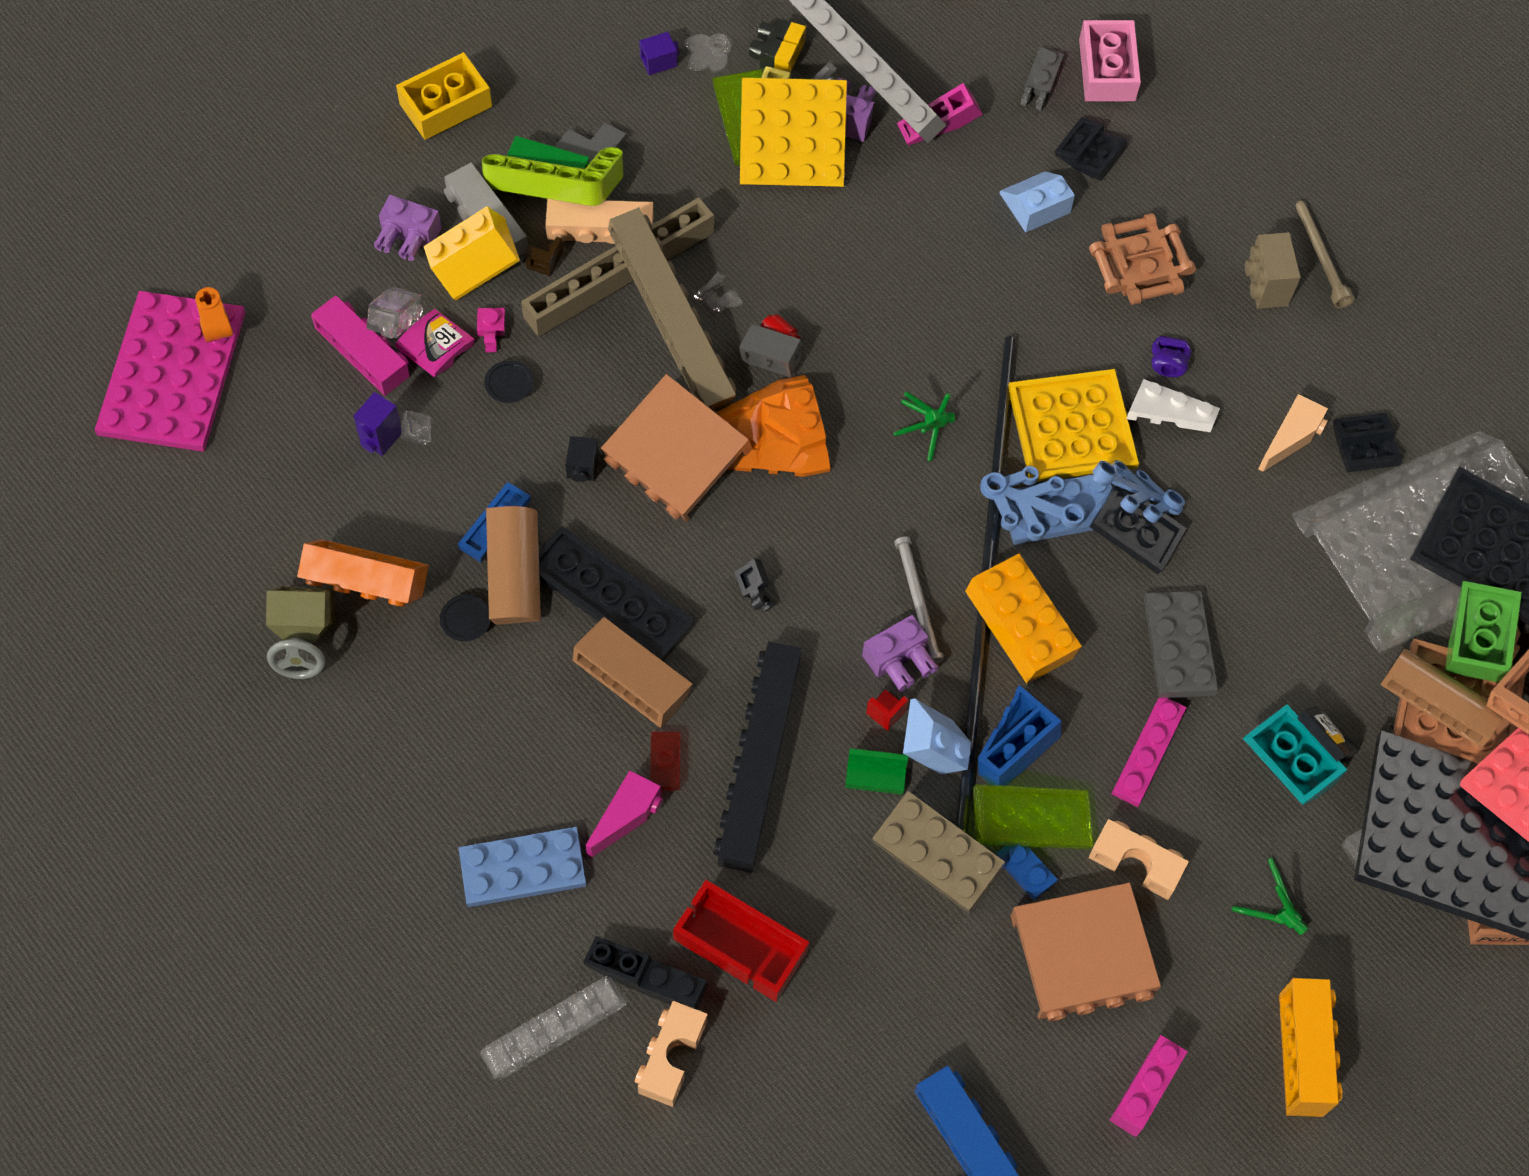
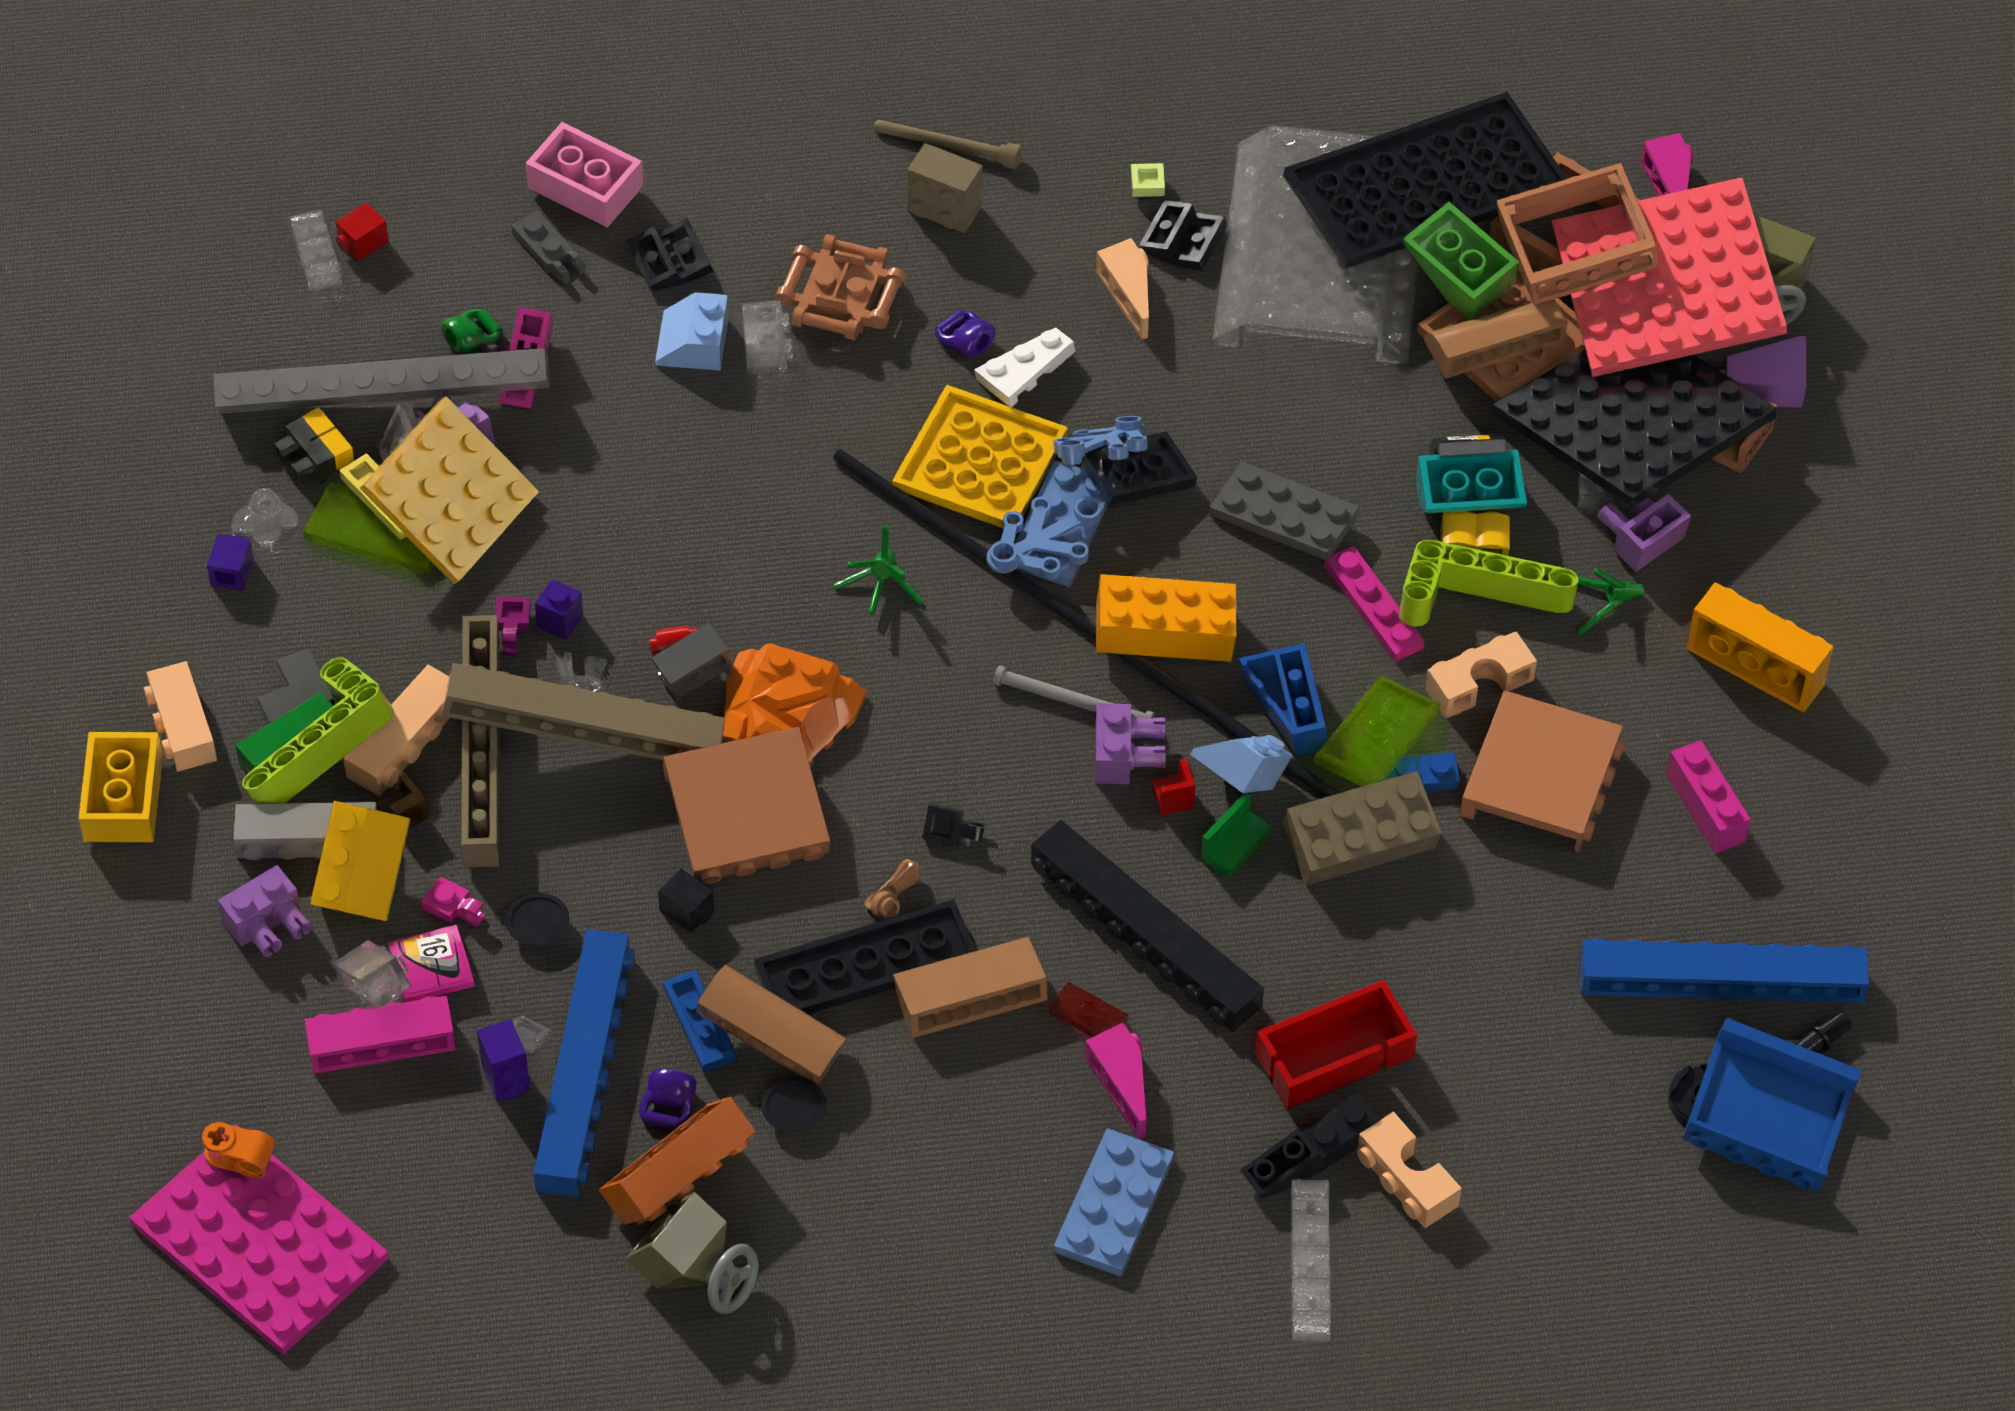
camera: 55 degrees left, 10 degrees down
(415, 472) = (582, 1064): none -> blue brick
(429, 538) = (668, 1089): none -> dark purple piece
(523, 97) = (180, 716): none -> light nougat brick
(663, 579) = (886, 904): none -> medium nougat piece
(730, 228) = (512, 617): none -> magenta plate
(756, 250) = (559, 609): none -> dark purple brick
(934, 72) = (464, 334): none -> green piece
(1066, 240) = (765, 338): none -> clear brick
(1212, 774) = (1483, 575): none -> lime beam
(1257, 786) = (1478, 531): none -> yellow brick
(1352, 907) = (1649, 533): none -> medium lavender brick
(1393, 392) = (1147, 180): none -> yellowish green plate

